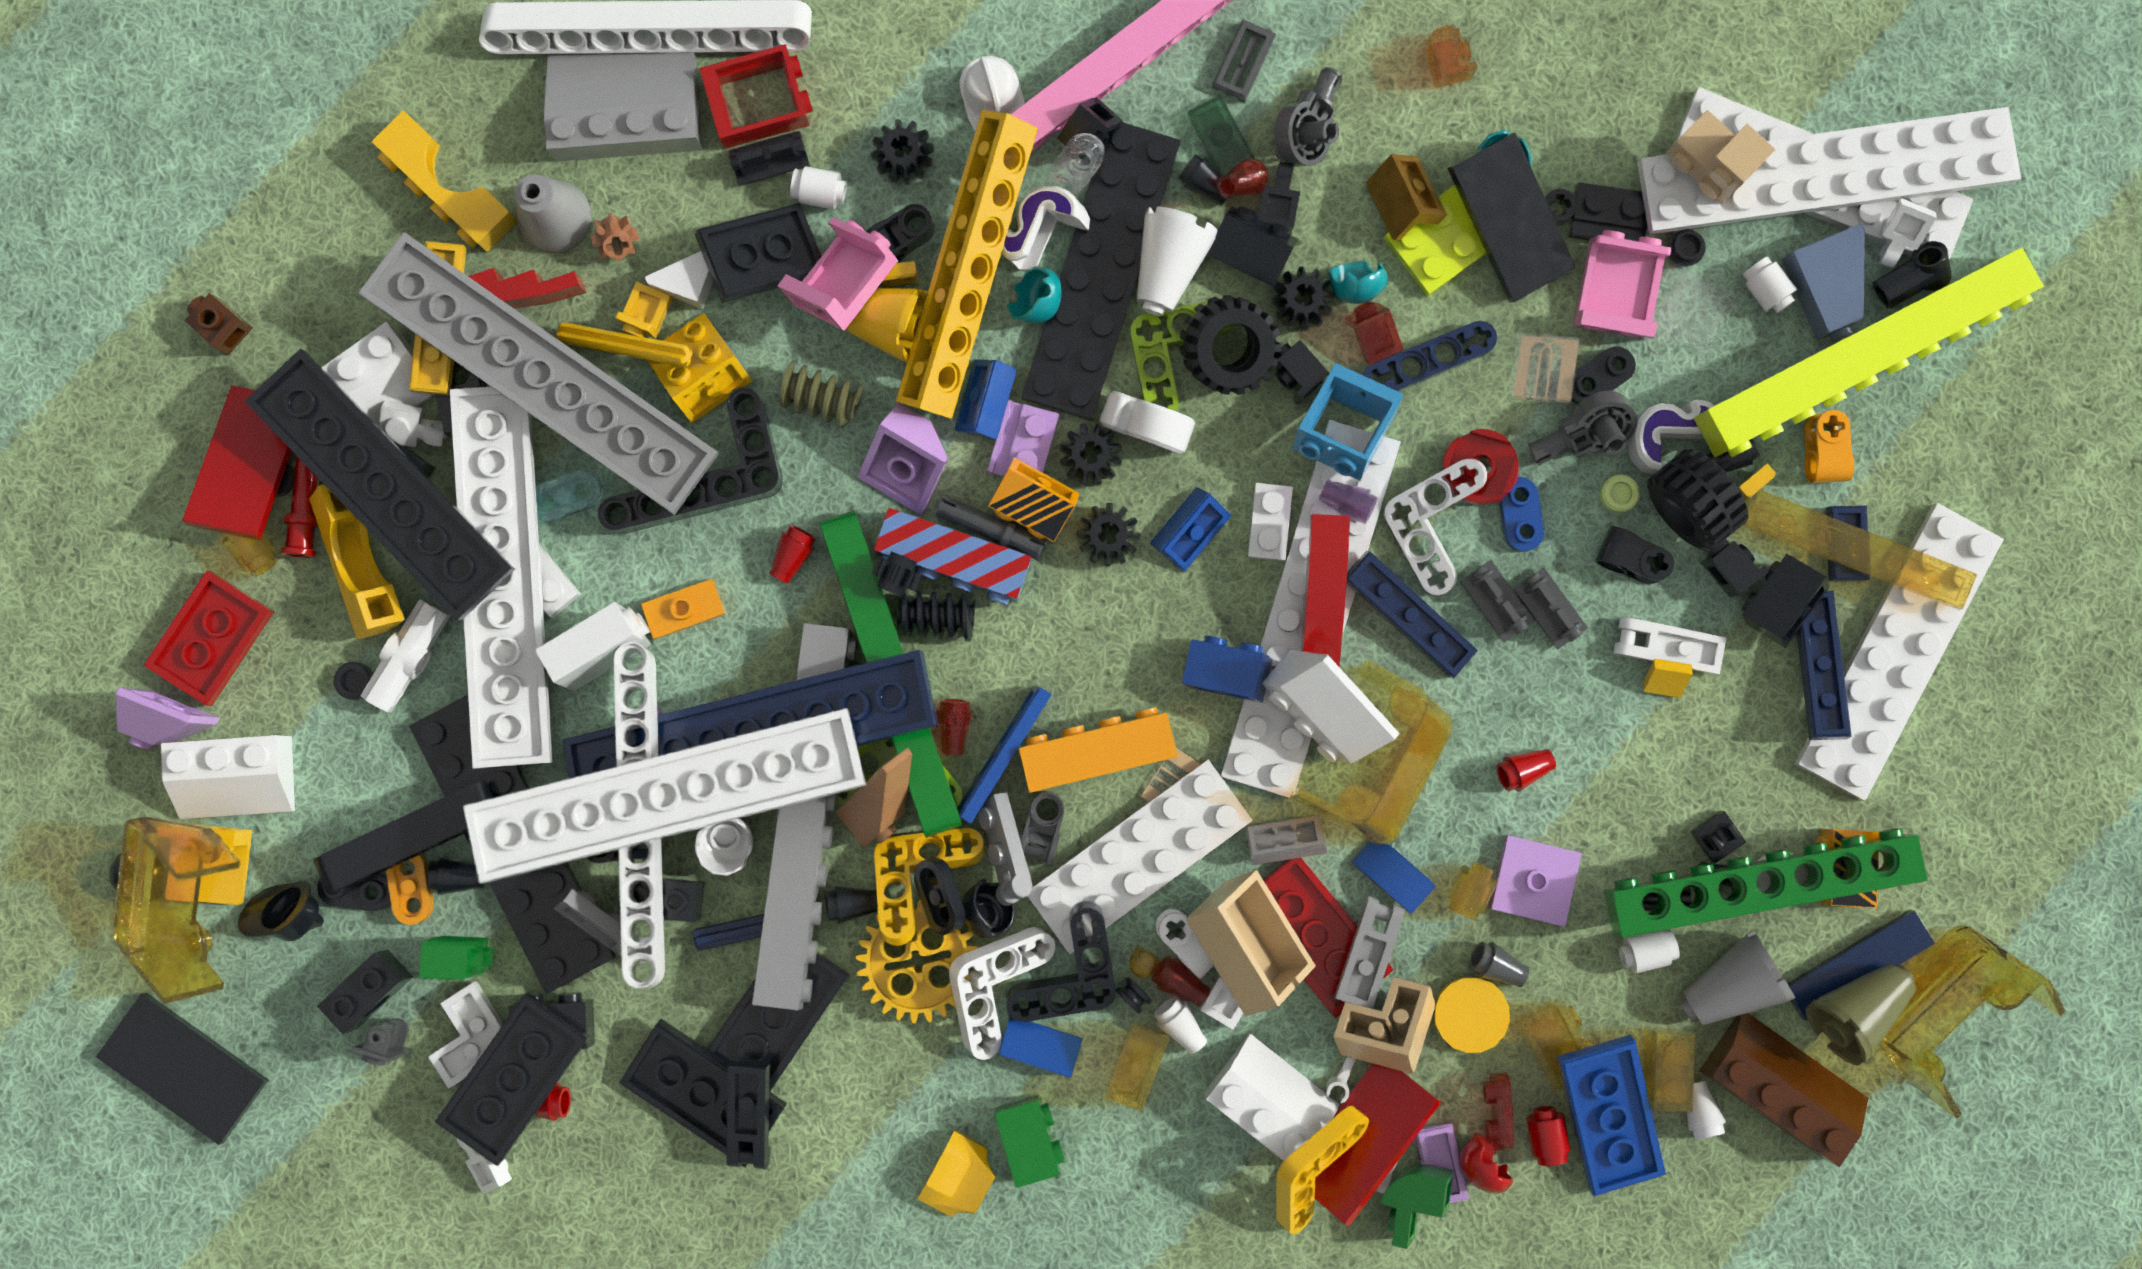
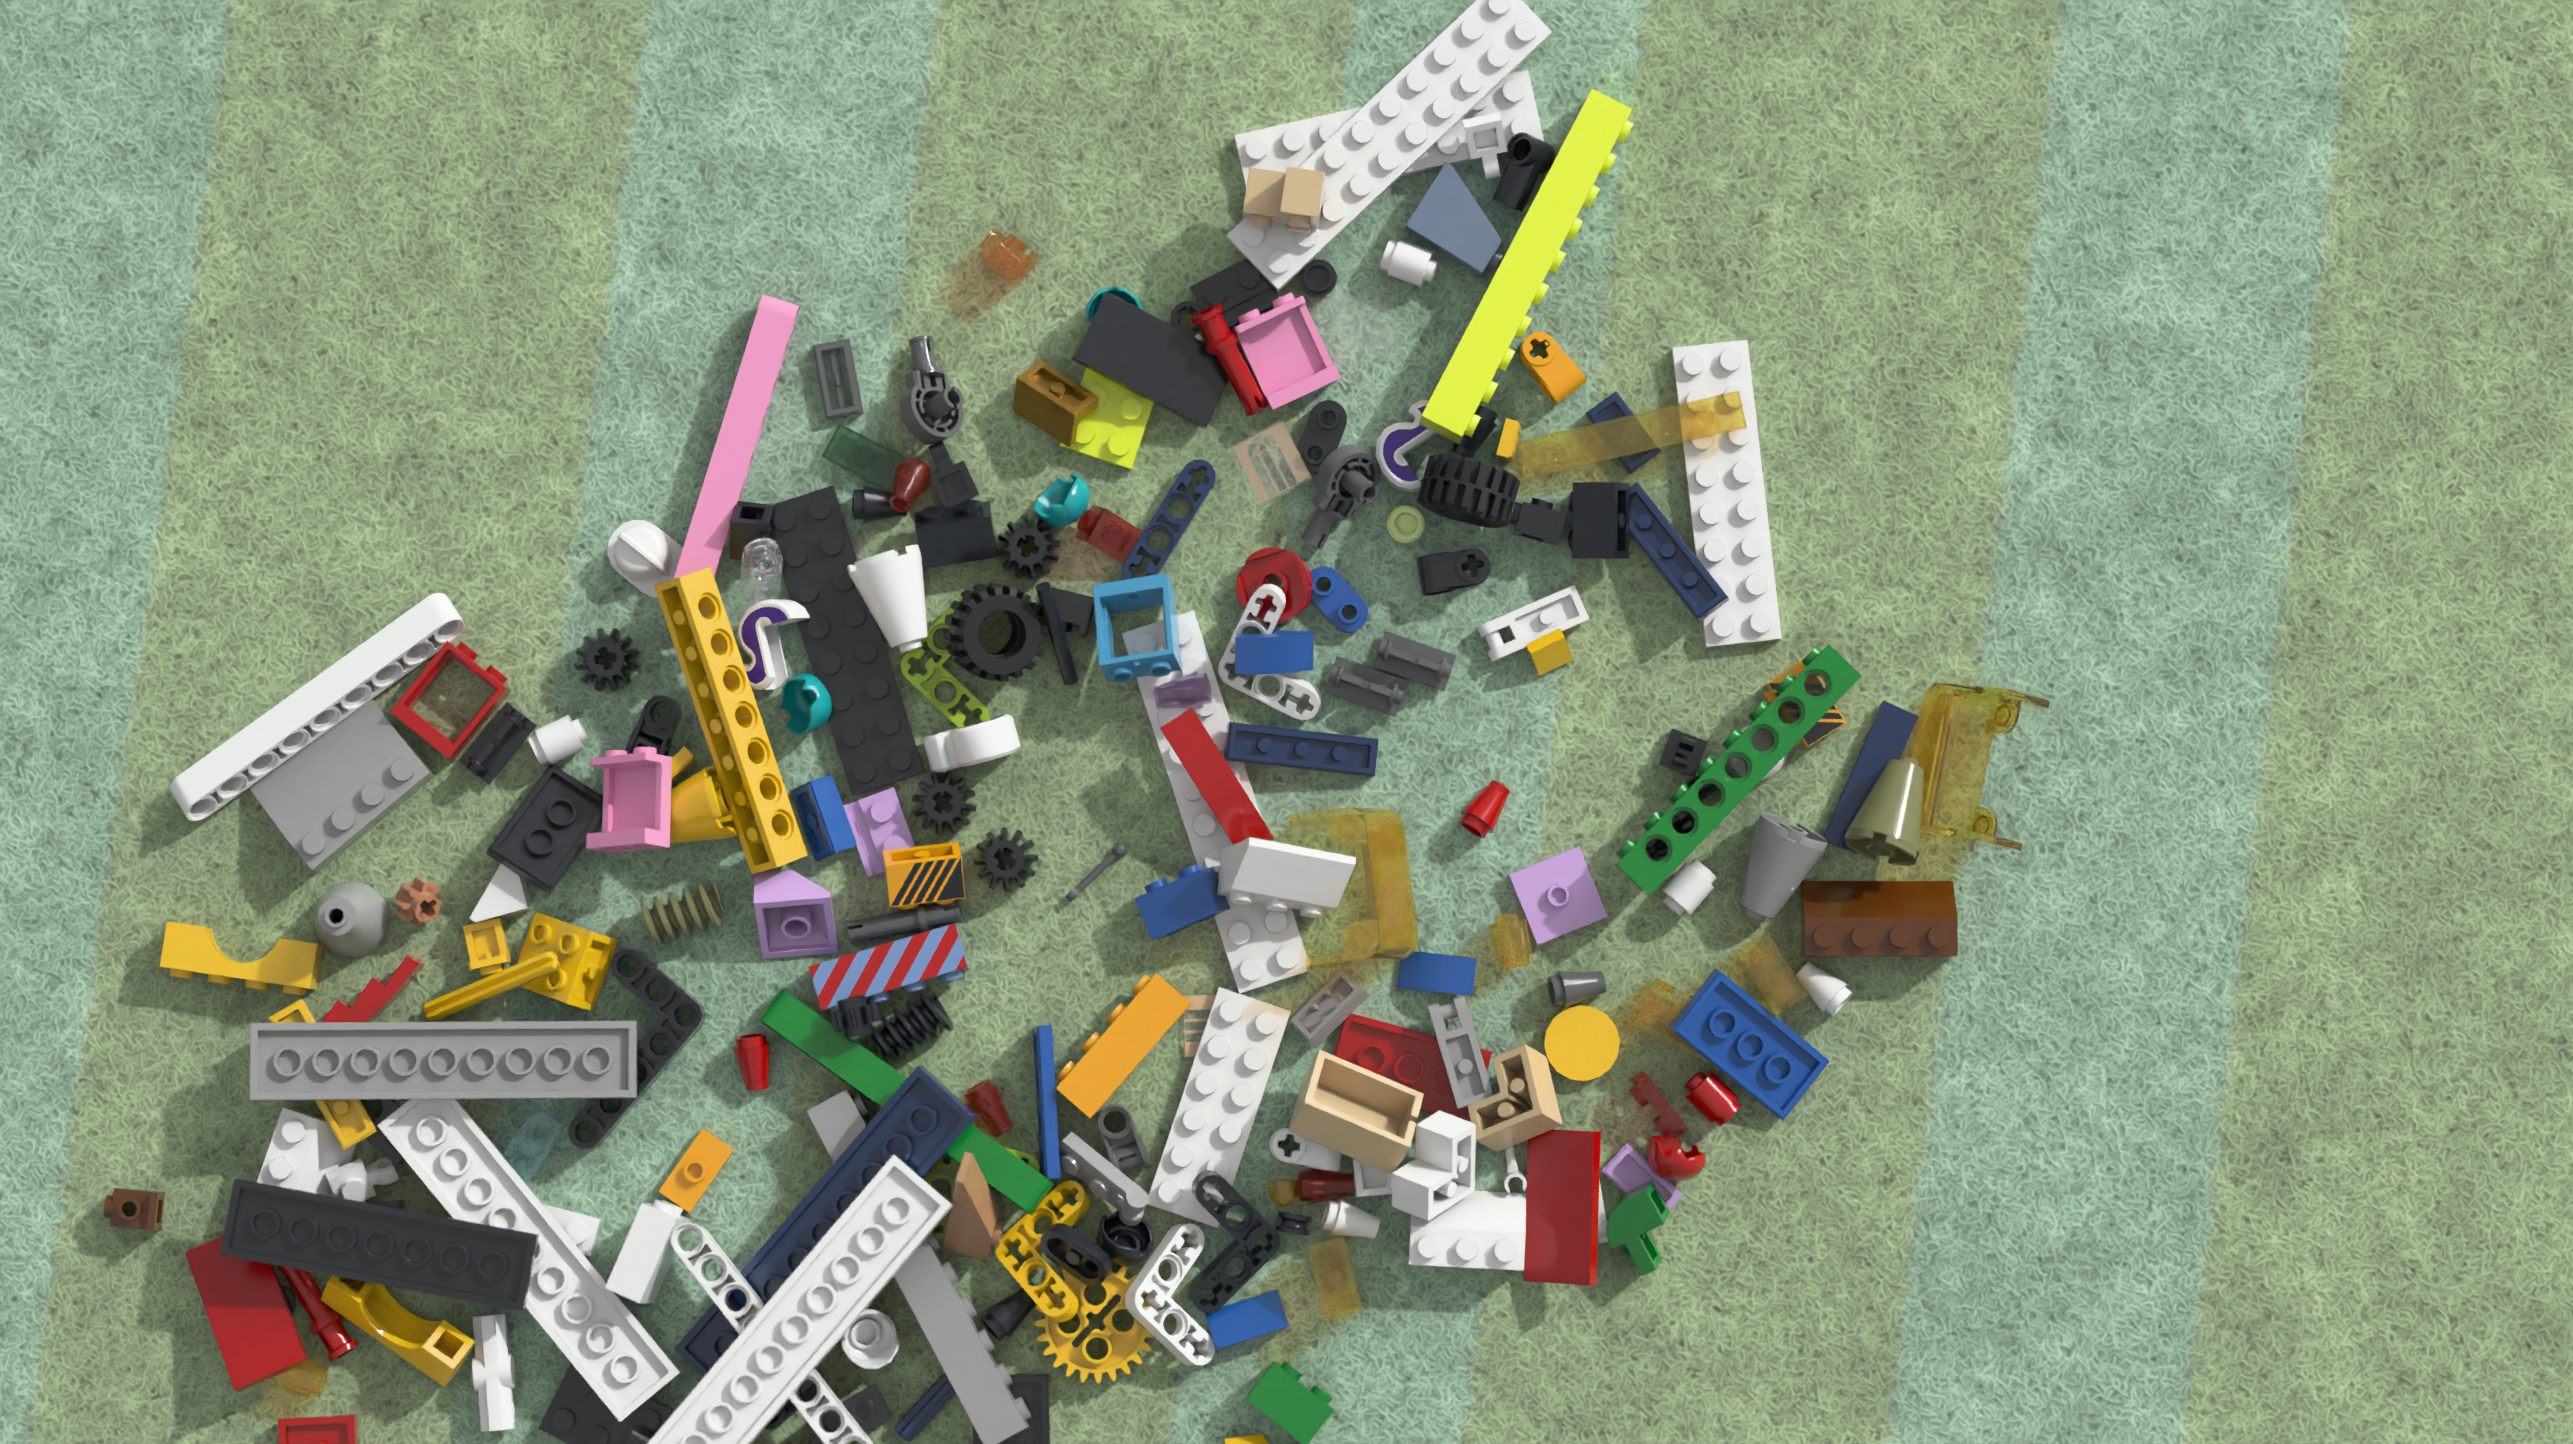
camera: 30 degrees left, 0 degrees up
(352, 679) = (463, 1424): black tile -> none
(1190, 528) = (1070, 805): blue slope -> none
(1203, 593) = (1119, 851): none -> dark grey hinge
(1270, 522) = (1132, 753): white plate -> none
(1279, 380) = (1056, 633): none -> black bar
(1288, 1039) = (1442, 1167): none -> white brick
(1297, 1173) = (1521, 1259): yellow beam -> none
(1445, 520) = (1274, 652): none -> blue slope
(1576, 243) = (1222, 343): none -> red pin

